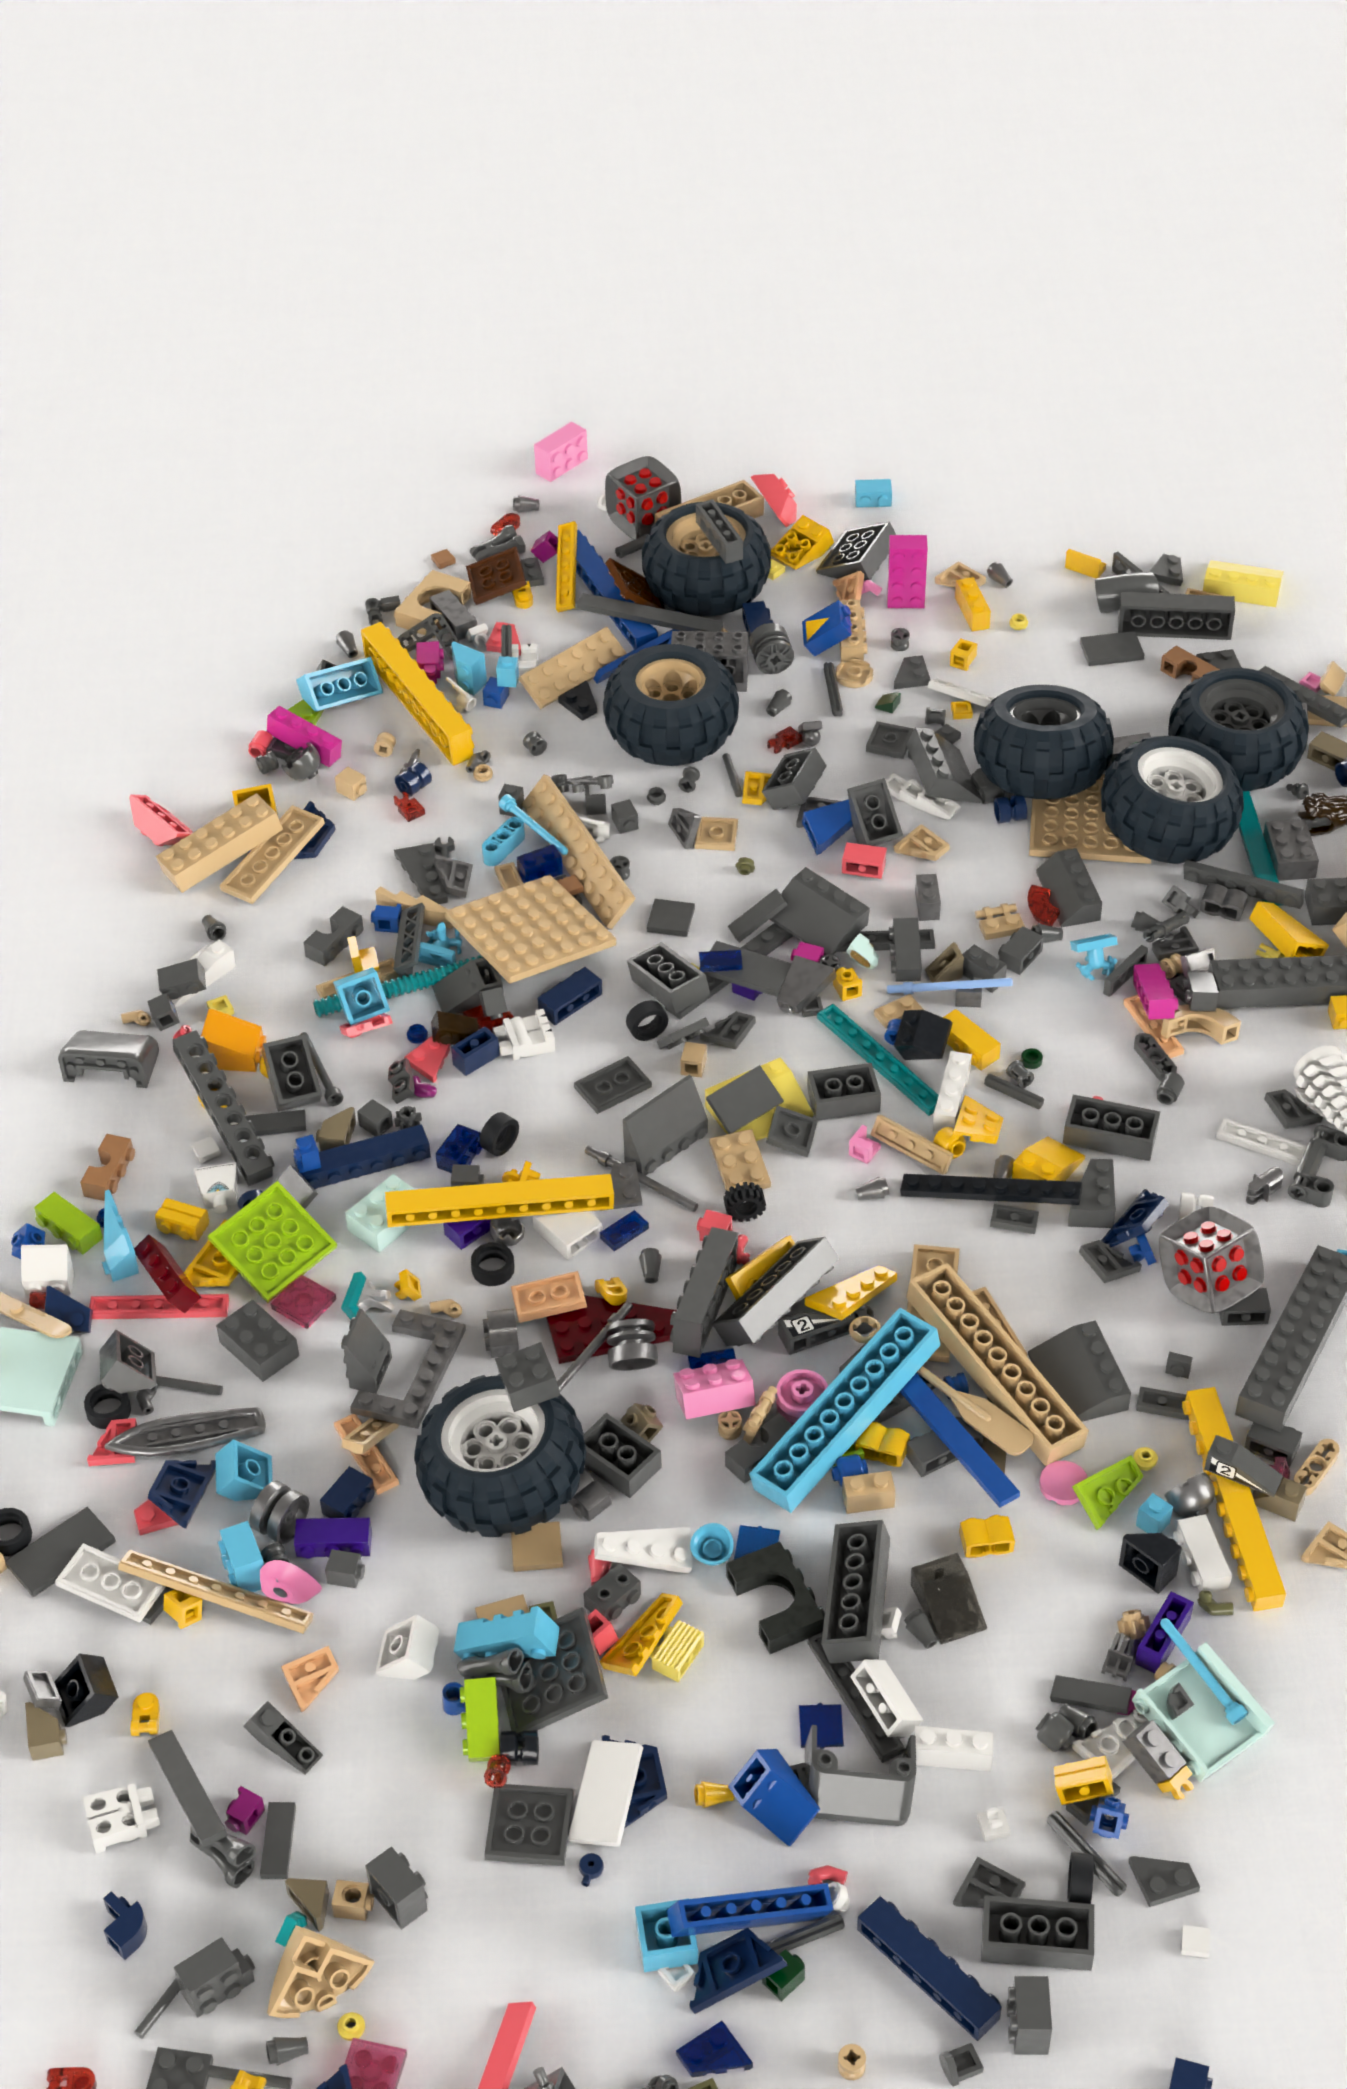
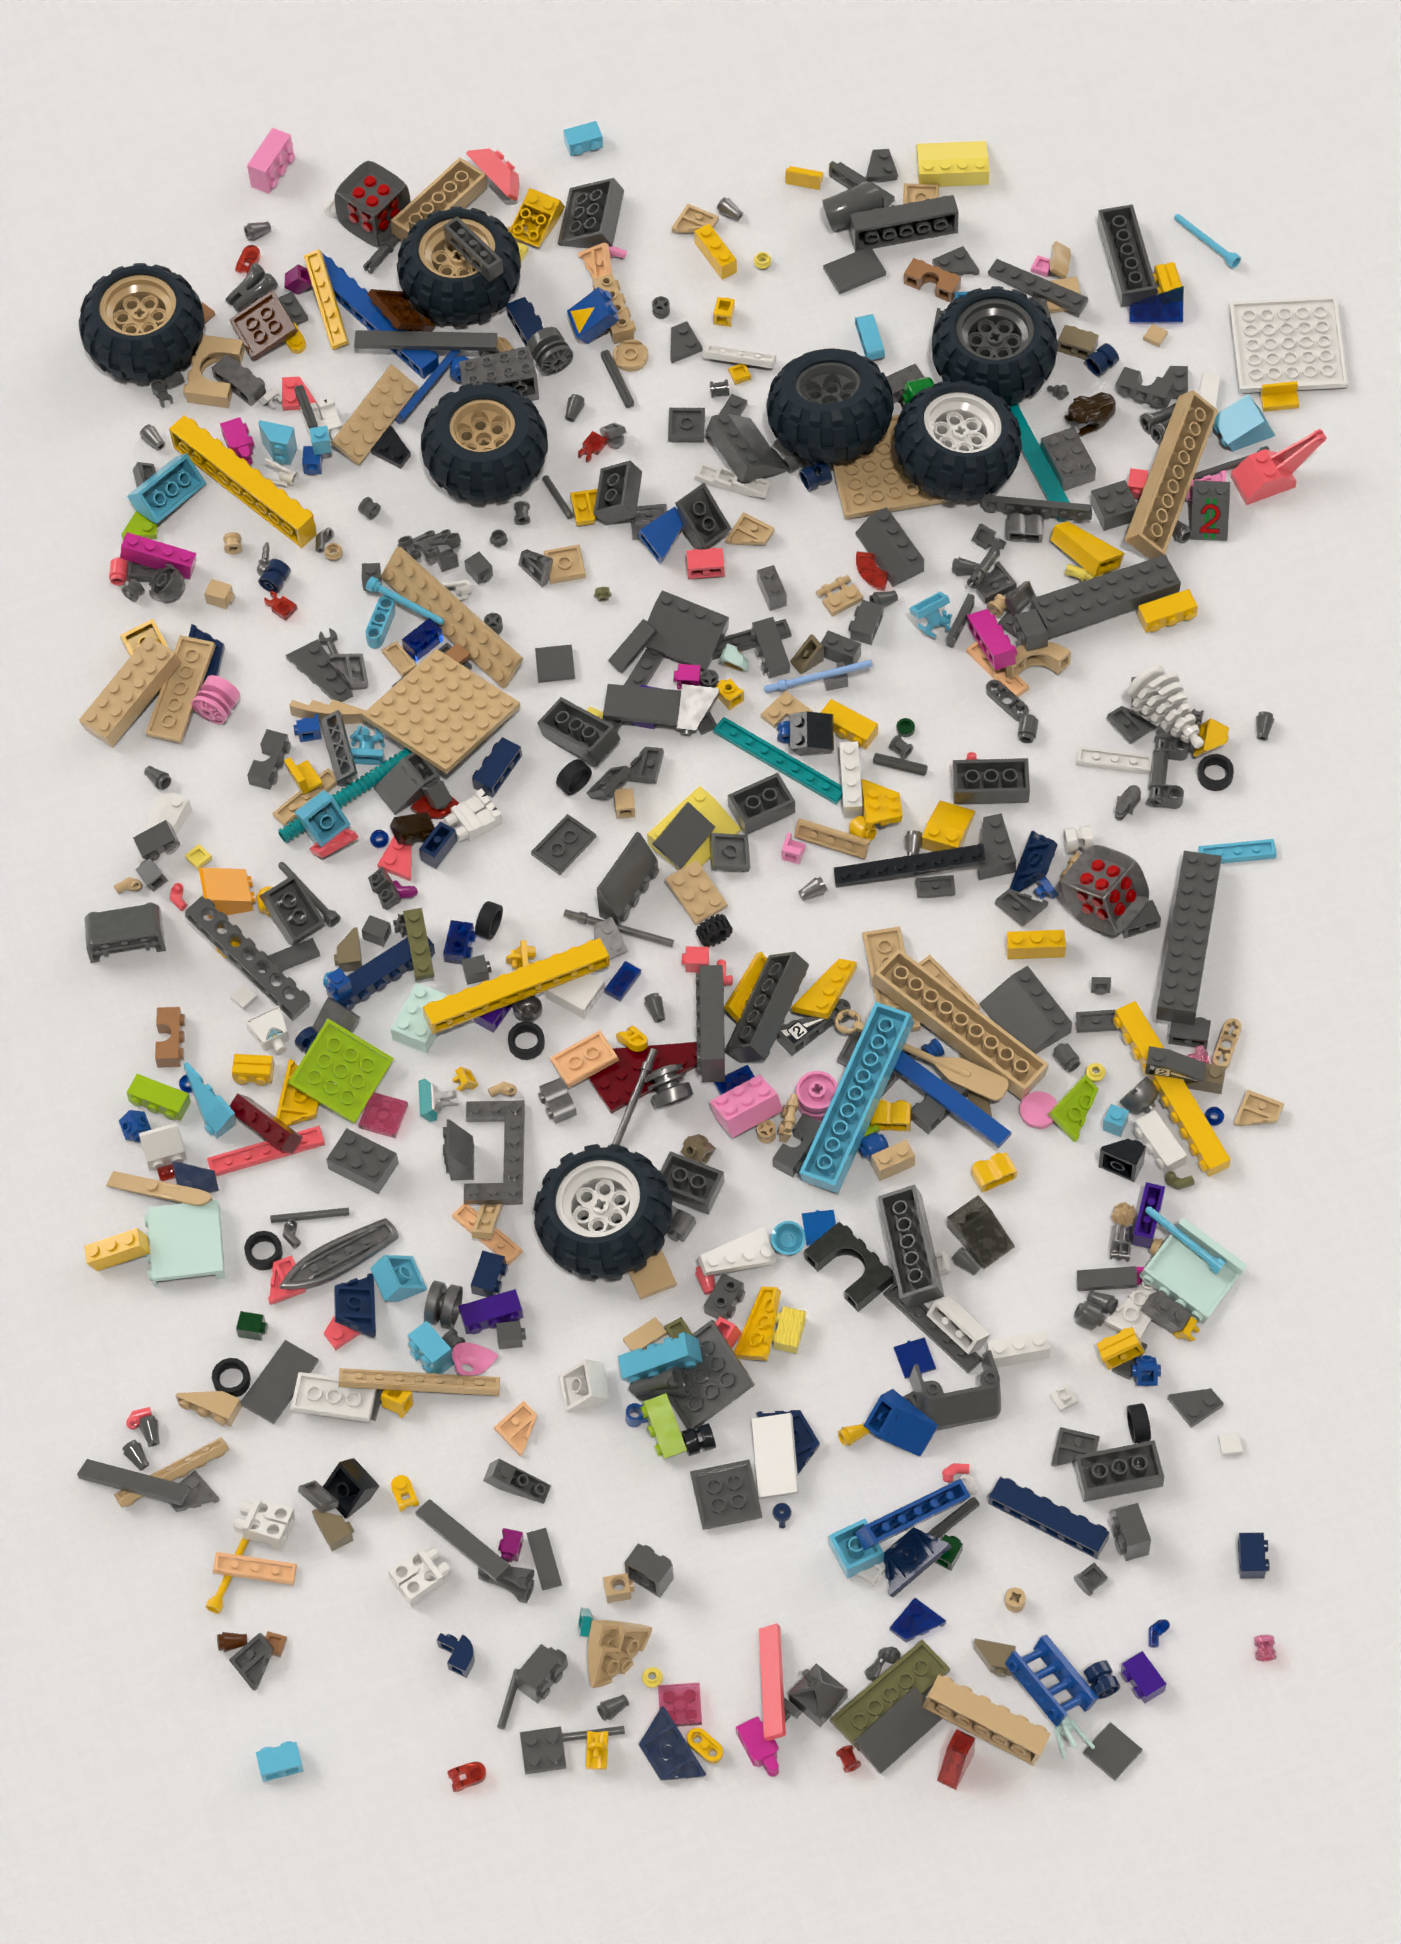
camera: 15 degrees left, 15 degrees up
(55, 1481) = (251, 1326): none -> dark green brick
(126, 1364) = (267, 1213): dark grey slope -> none
(157, 821) = (63, 681): wedge -> none
(302, 869) = (215, 699): none -> bright pink wheel
(310, 1897) = (586, 1595): dark tan slope -> none
(375, 543) = (141, 322): none -> black wheel
(412, 1137) = (418, 944): none -> olive plate
(431, 631) = (228, 406): dark grey beam -> none
(494, 1768) = (689, 1458): clear red bush -> none
(527, 1377) = (613, 1149): dark grey brick -> none
(720, 960) = (619, 704): clear blue tile -> none
(889, 702) = (672, 381): dark green slope -> none
(907, 571) = (649, 237): dark pink brick -> none
(1078, 1844) = (1132, 1398): dark grey axle -> none
(1109, 701) = (870, 337): none -> medium azure beam
(1113, 1304) = (1036, 944): none -> yellow brick
(1114, 1432) = (1066, 1057): none -> dark grey brick
(1178, 1701) = (1173, 1268): dark grey tile -> none
(1279, 1537) = (1217, 1112): none -> clear blue plate

